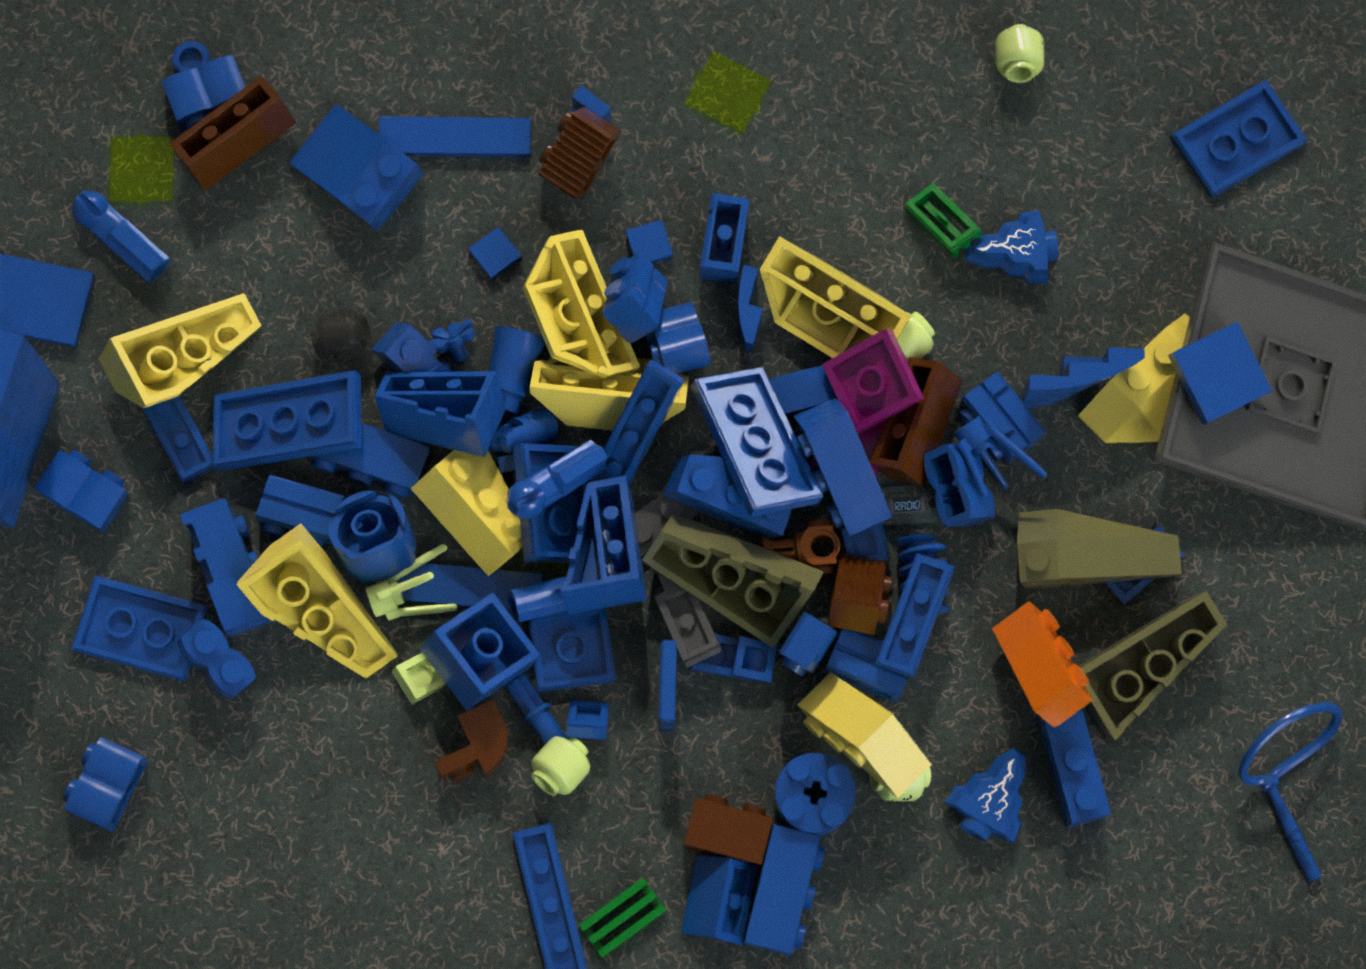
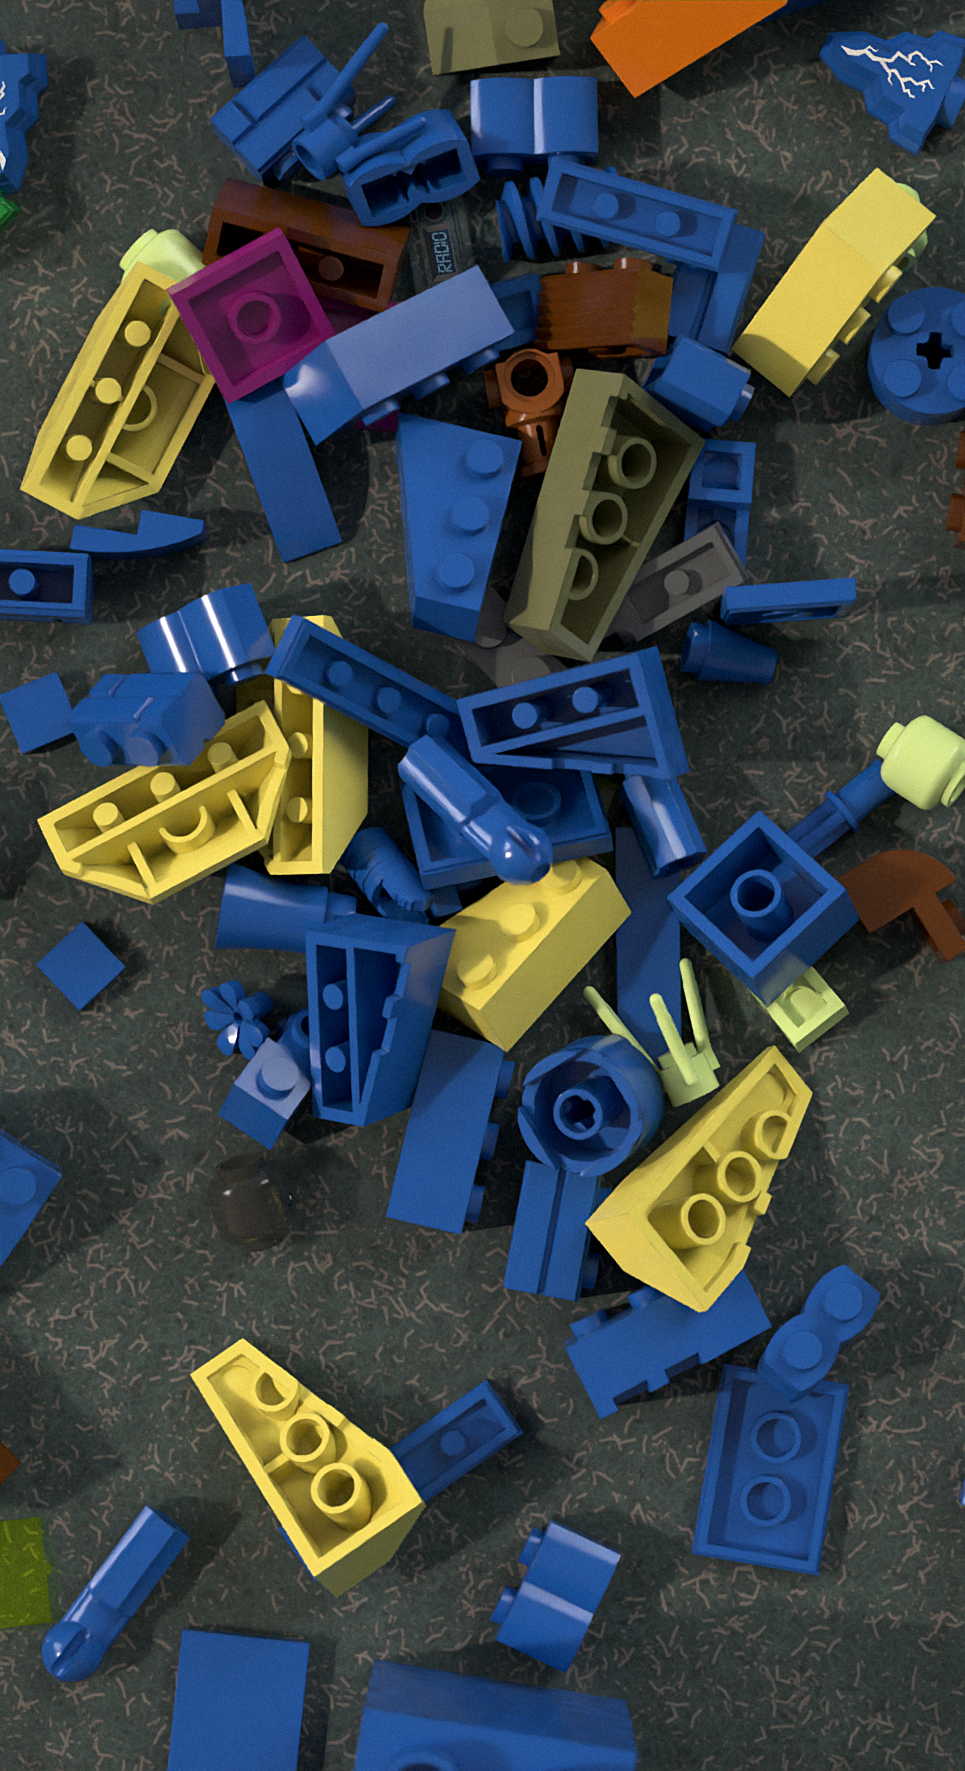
camera: 90 degrees left, 10 degrees up
(287, 421) = (410, 1269): blue tile -> none
(572, 650) = (738, 765): blue tile -> none
(587, 720) = (846, 728): blue tile -> none
(640, 651) = (724, 655): none -> blue cone
(756, 441) = (376, 494): blue tile -> none
(981, 568) = (533, 121): none -> blue brick

